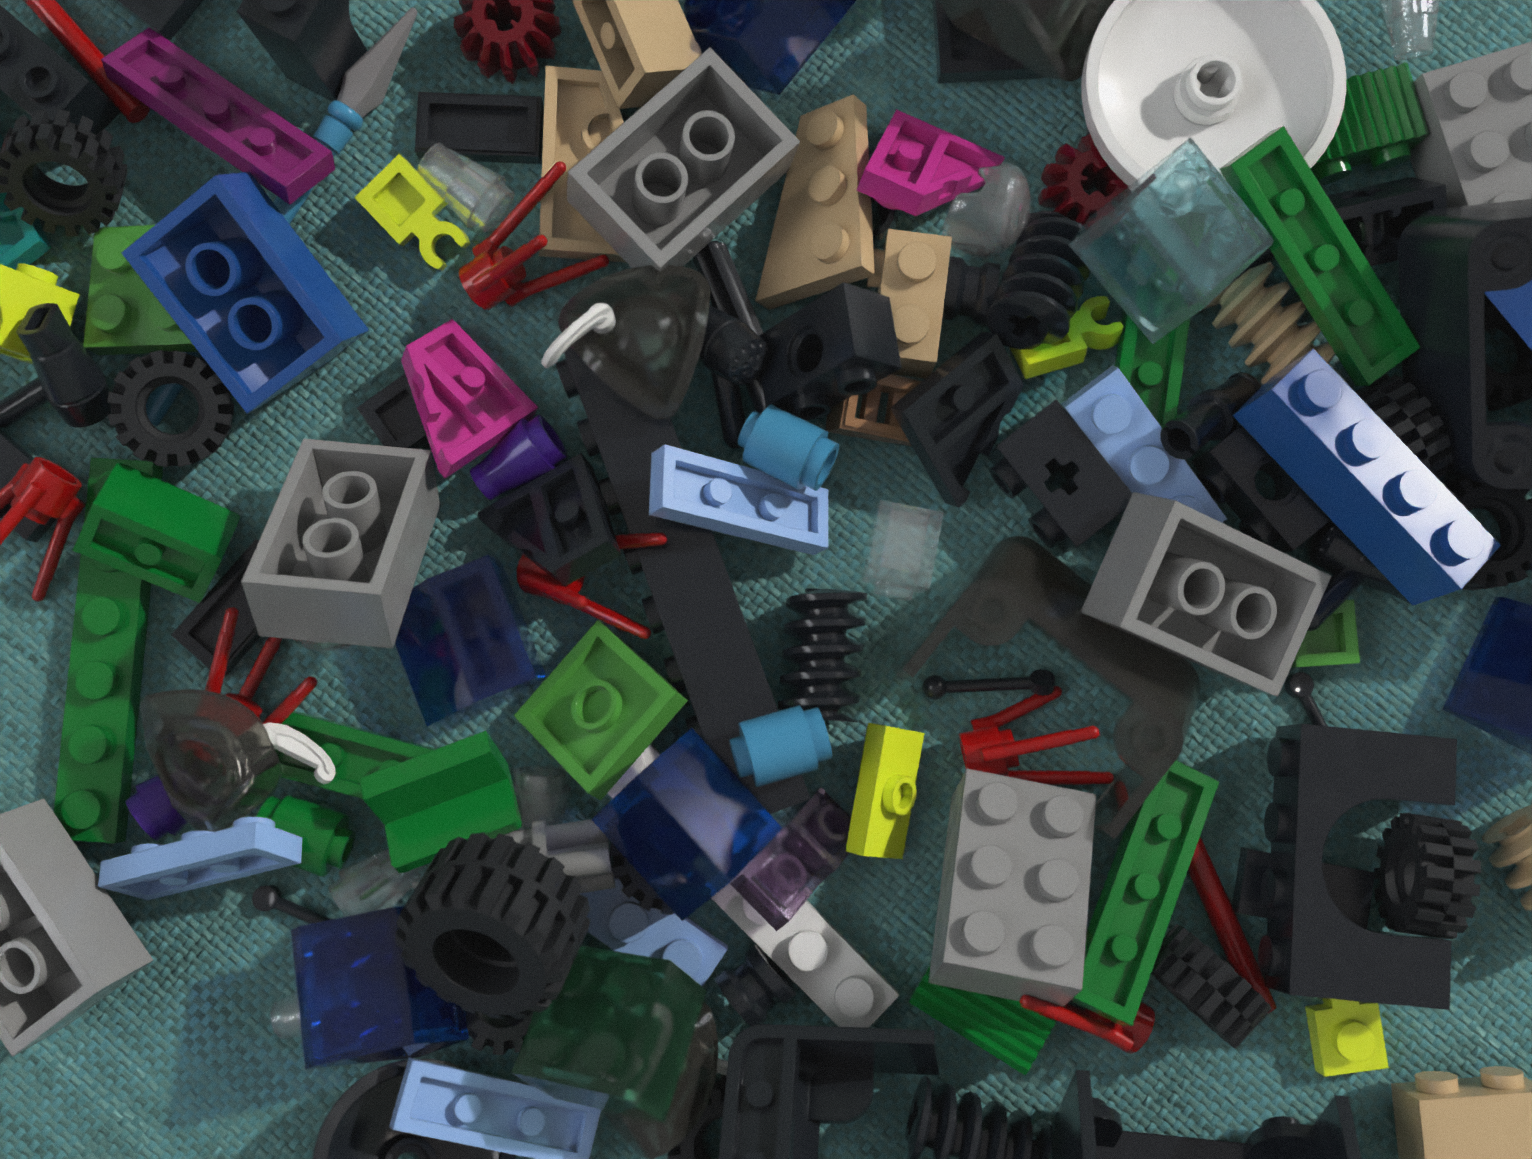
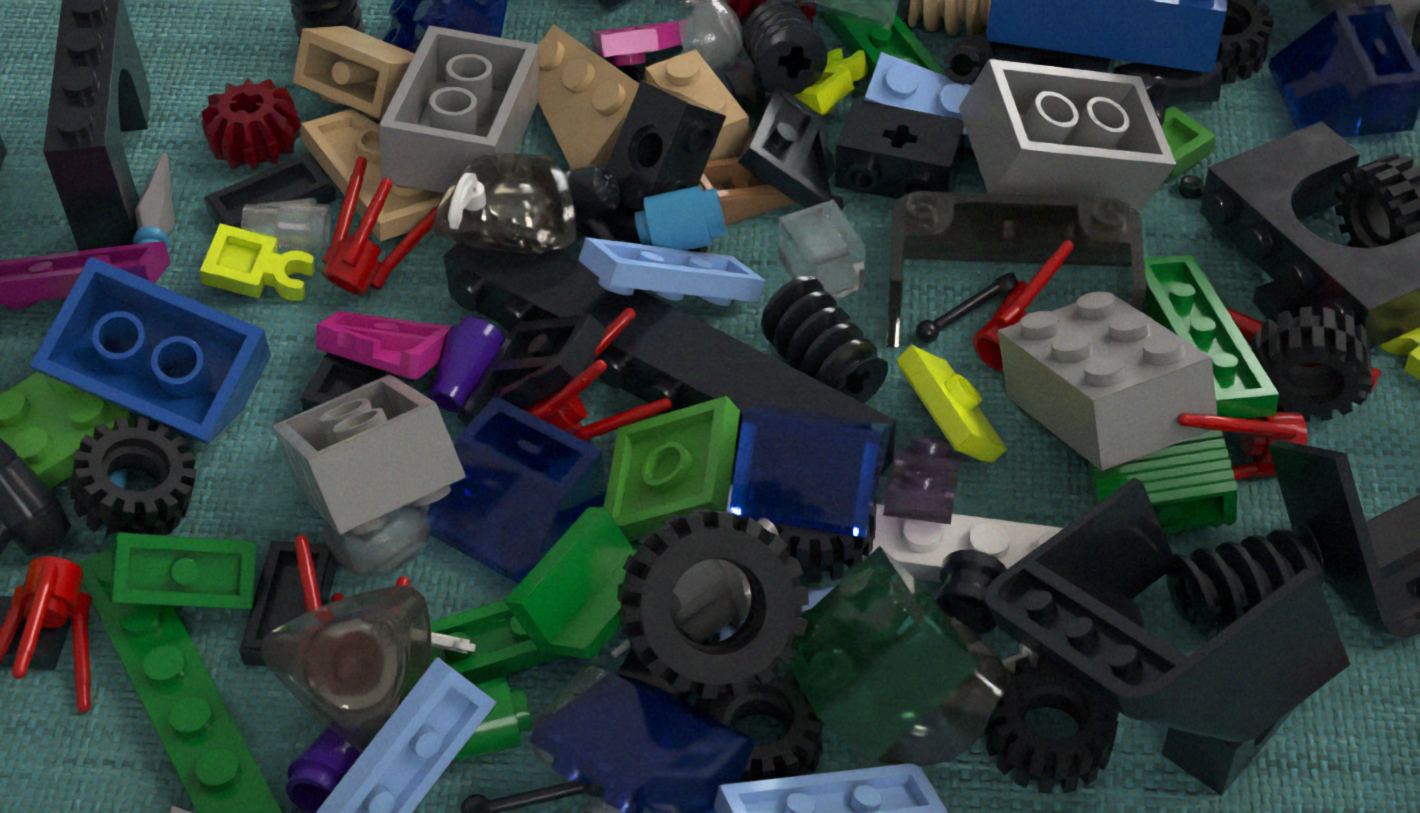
camera: 30 degrees left, 35 degrees down
(781, 745) = (841, 377): dark azure brick -> none

